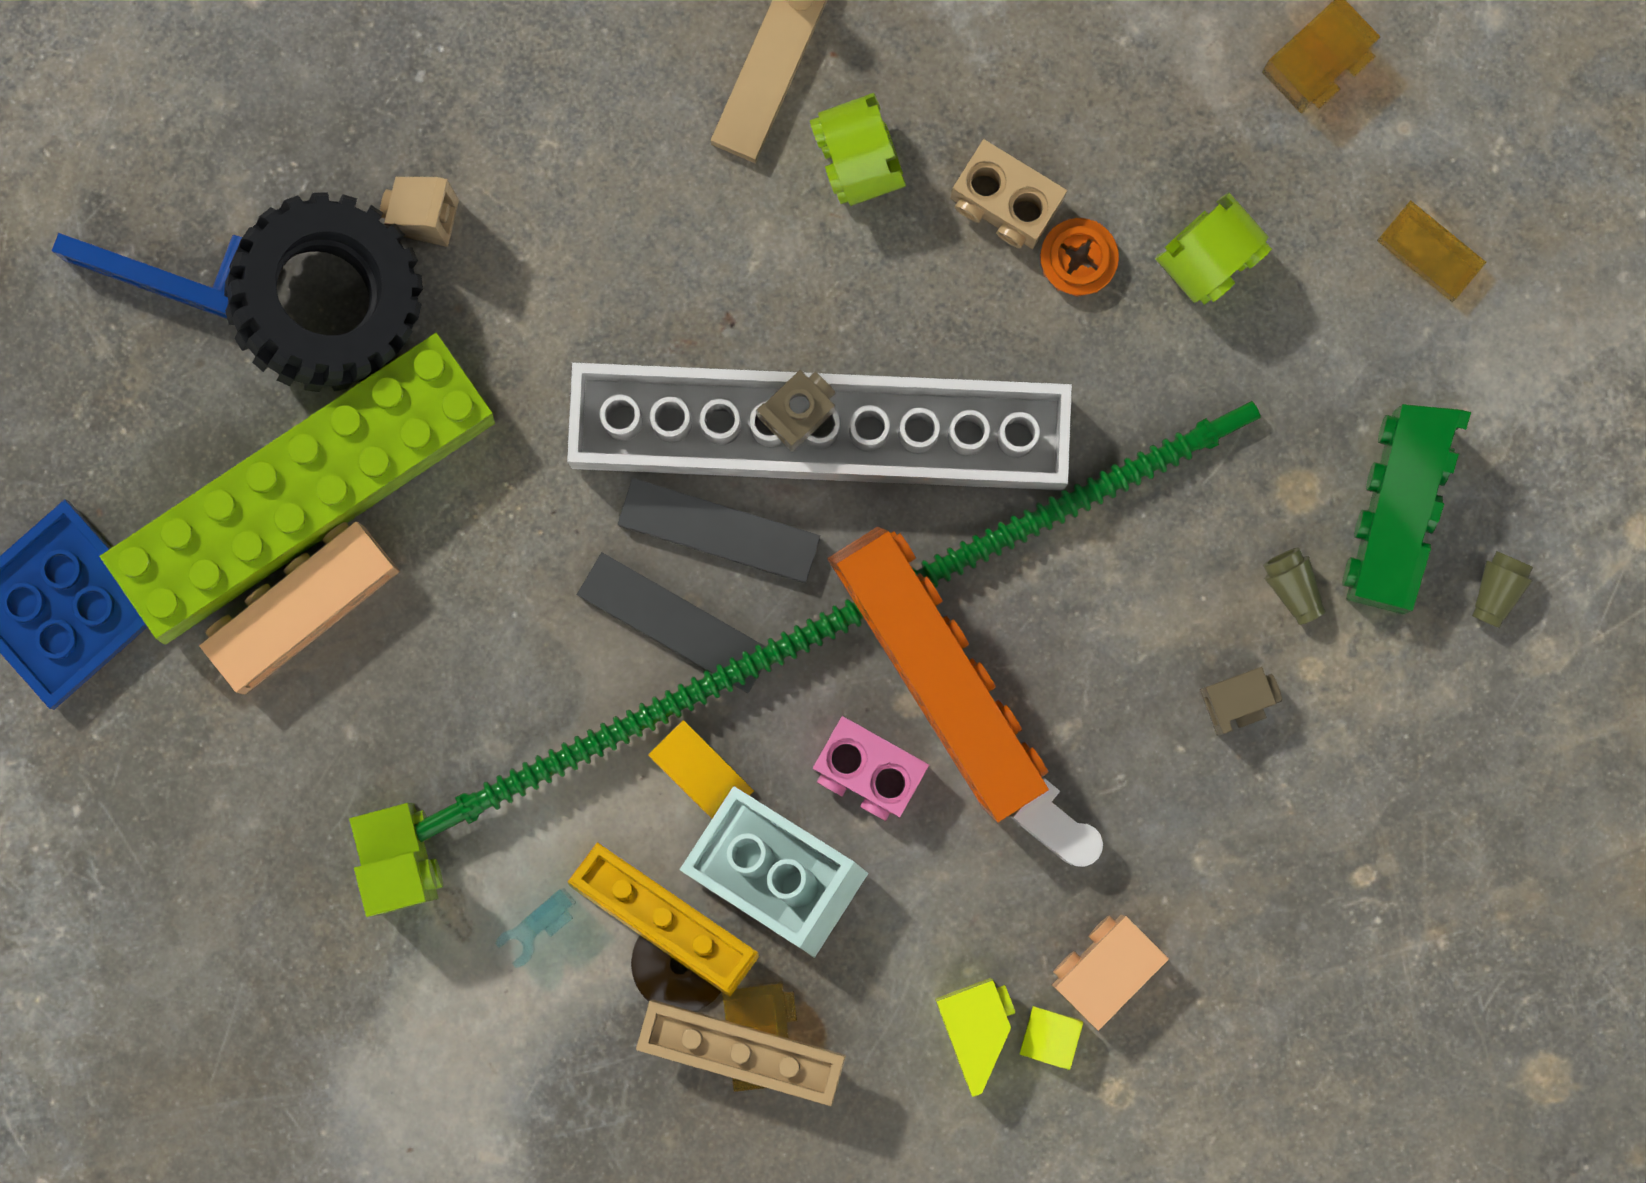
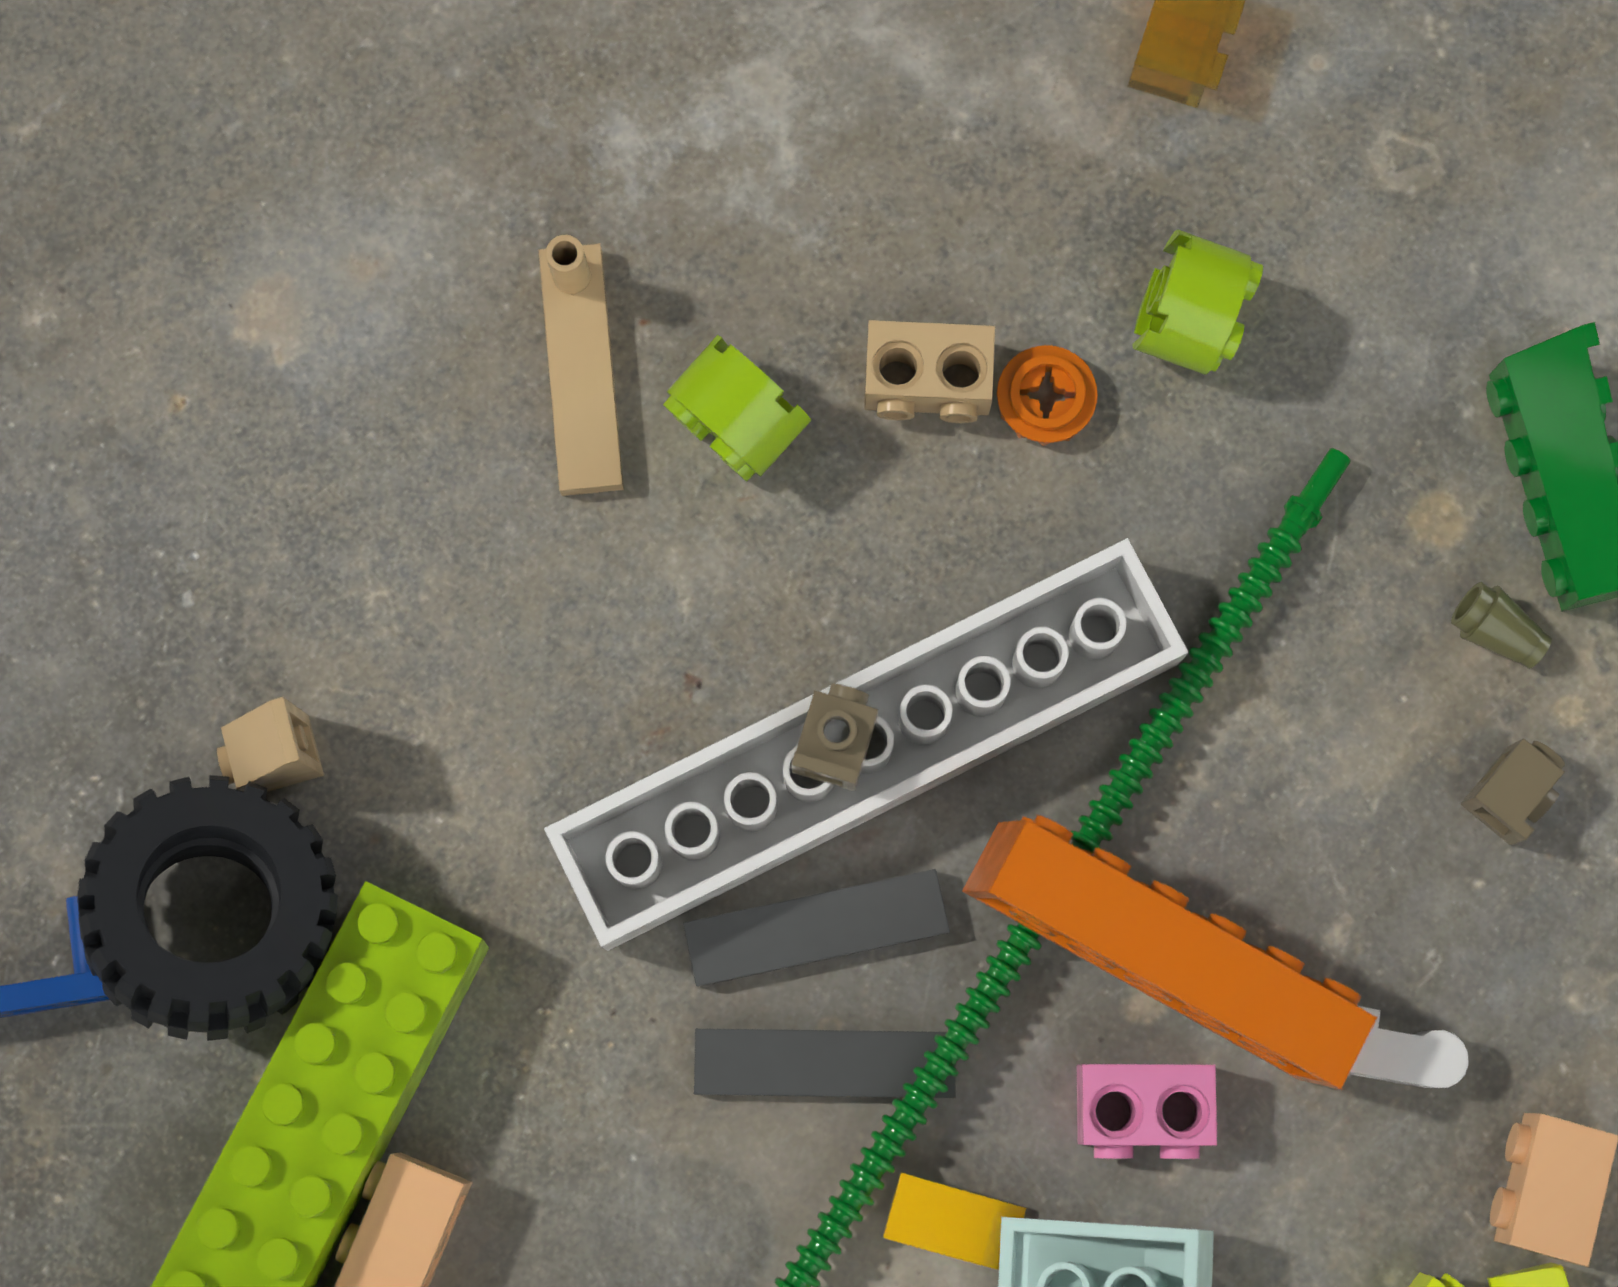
camera: 25 degrees left, 5 degrees down
(1431, 251) = (1428, 177): clear yellow tile -> none

